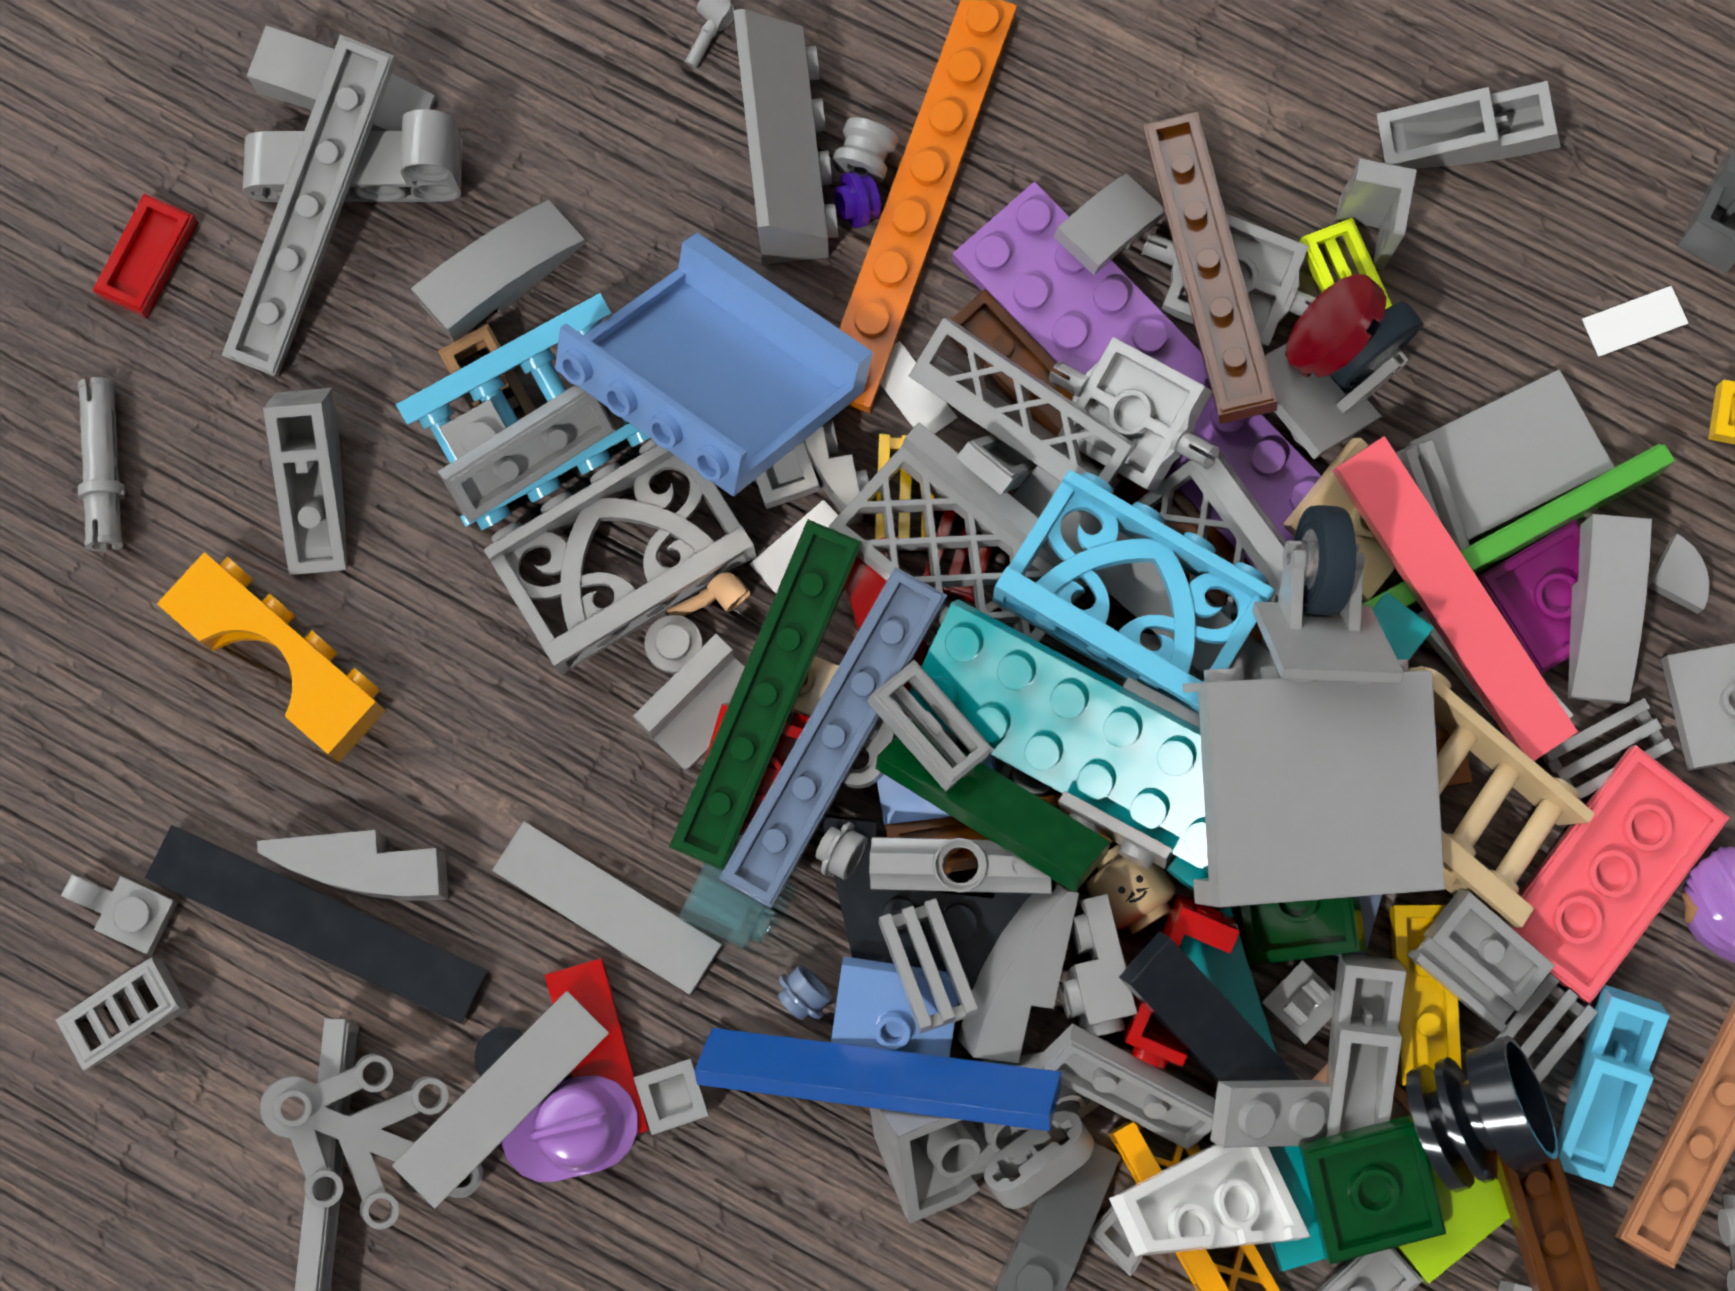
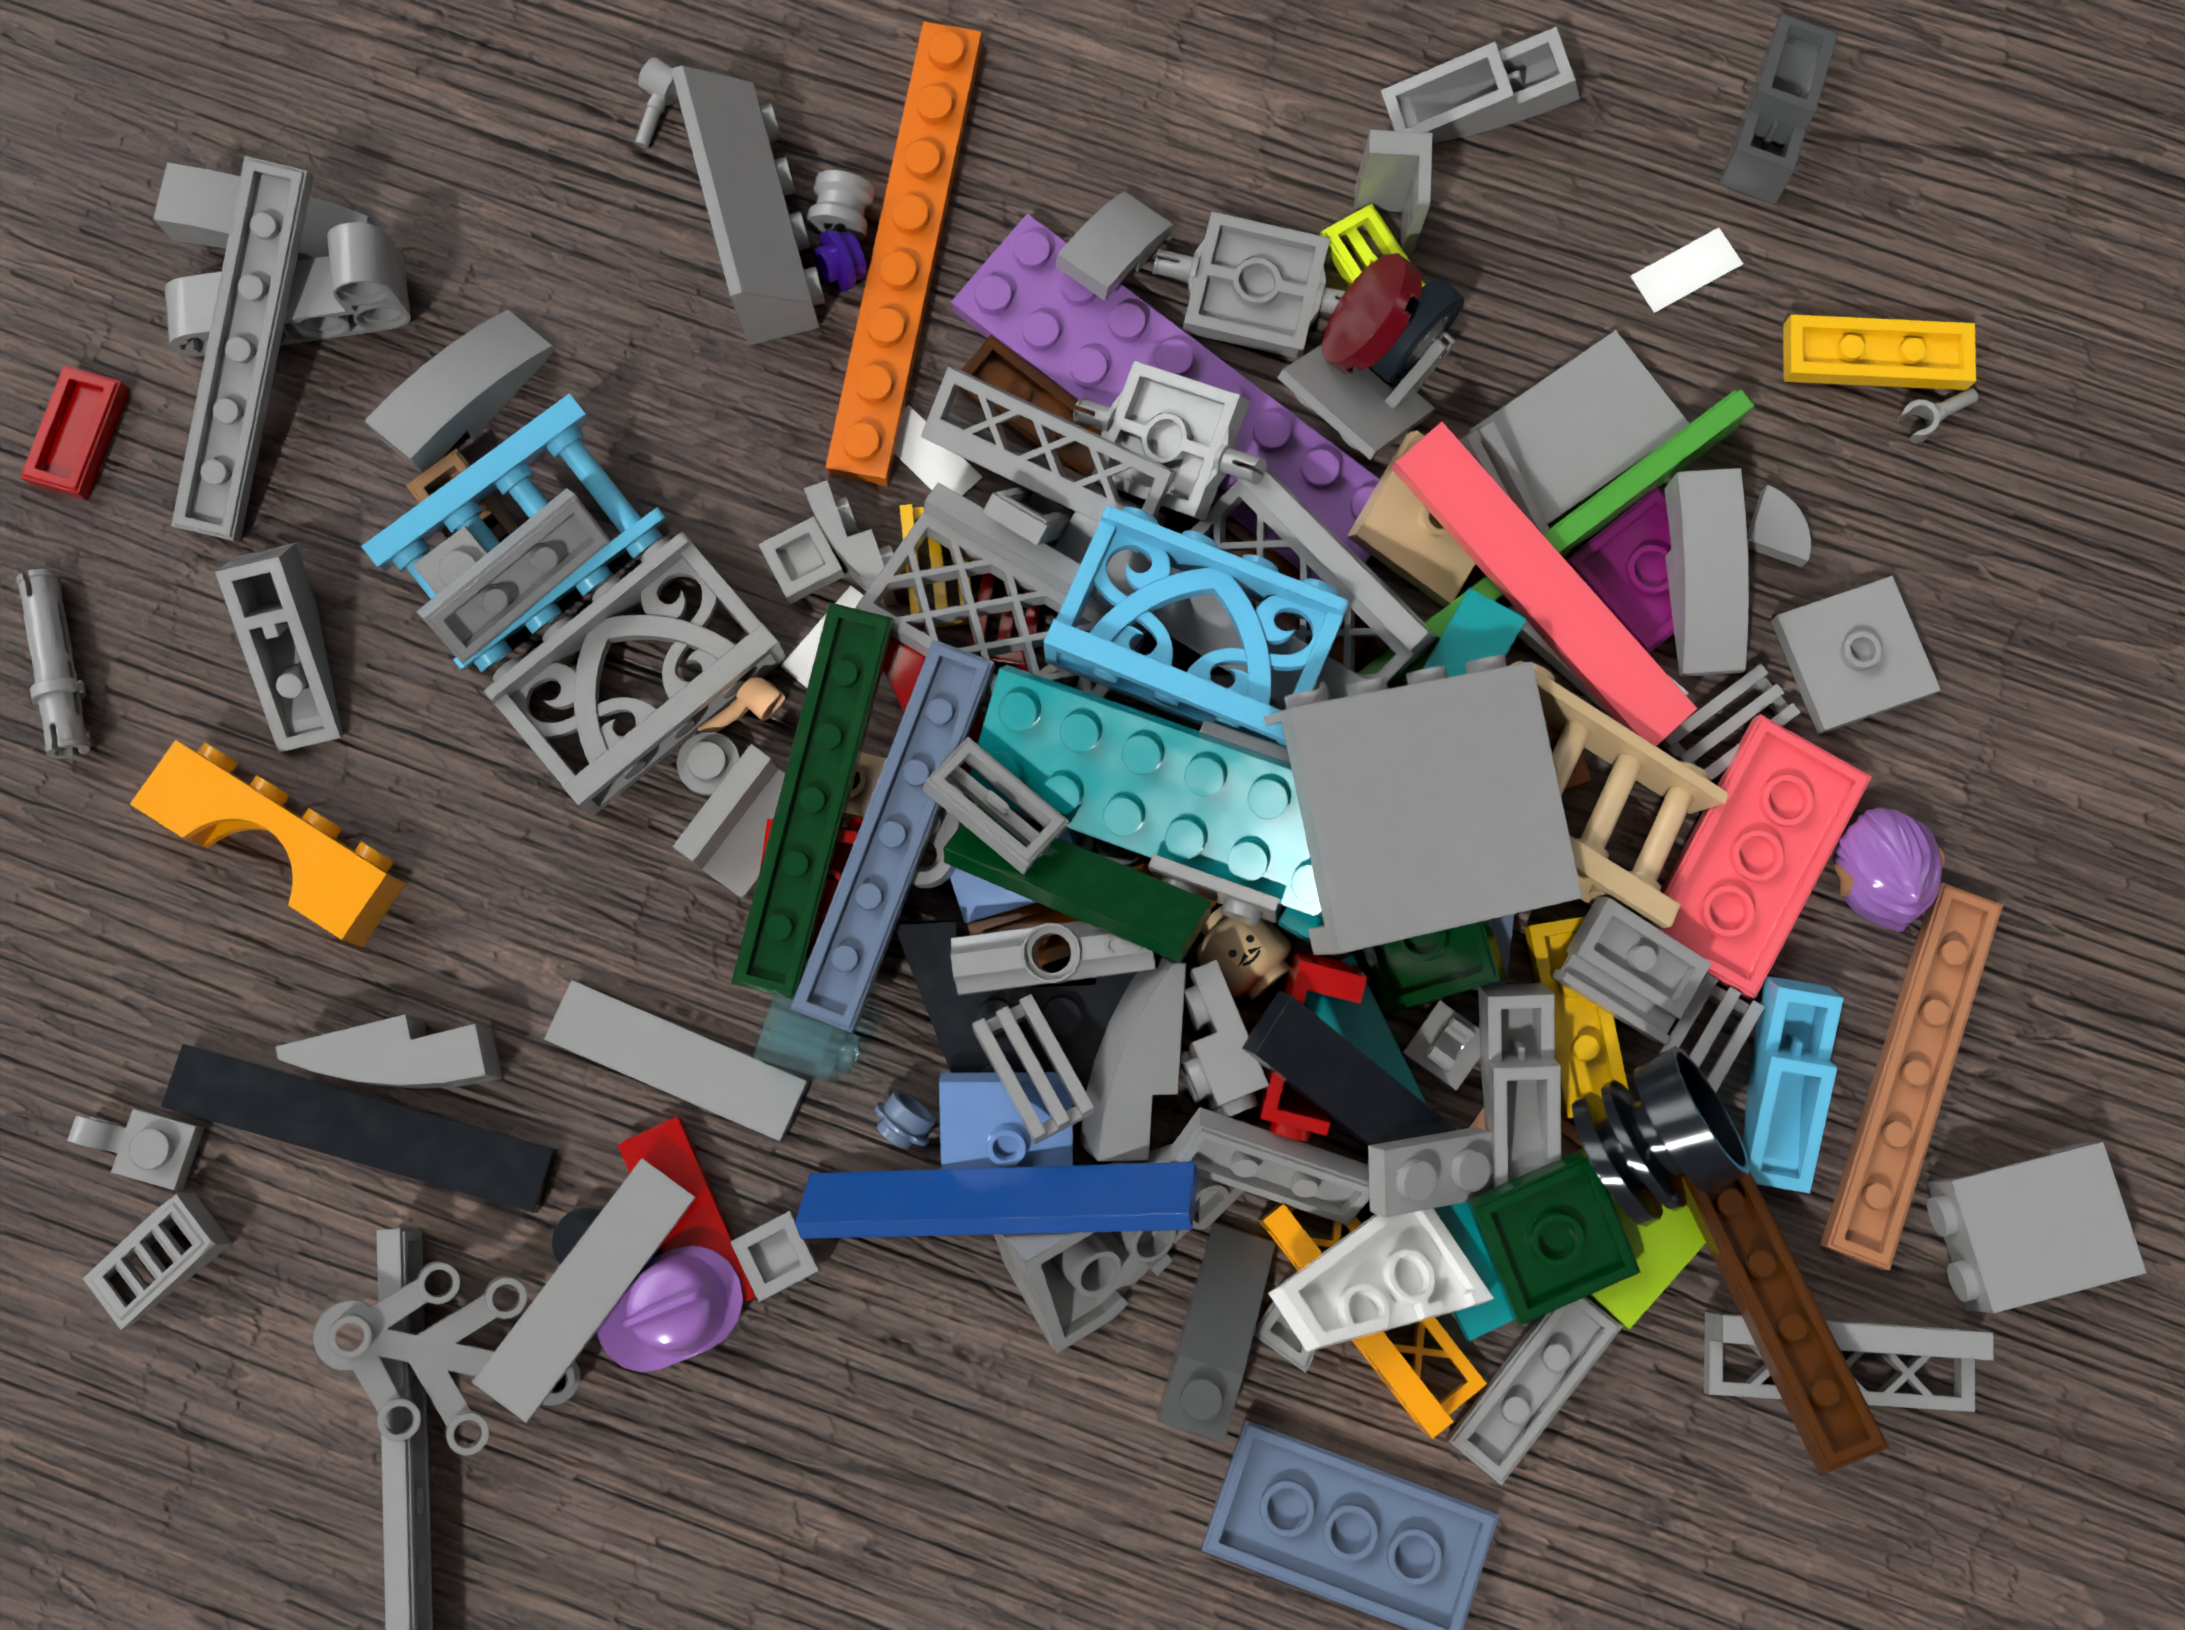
camera: 10 degrees left, 0 degrees up
(718, 366) = (710, 454): medium blue panel -> none
(841, 851) = (920, 958): light grey plate -> none
(1038, 1160) = (1187, 1262): light grey beam -> none
(1210, 269) = (1228, 276): tile -> none
(1319, 619) = (1400, 619): light grey plate -> none

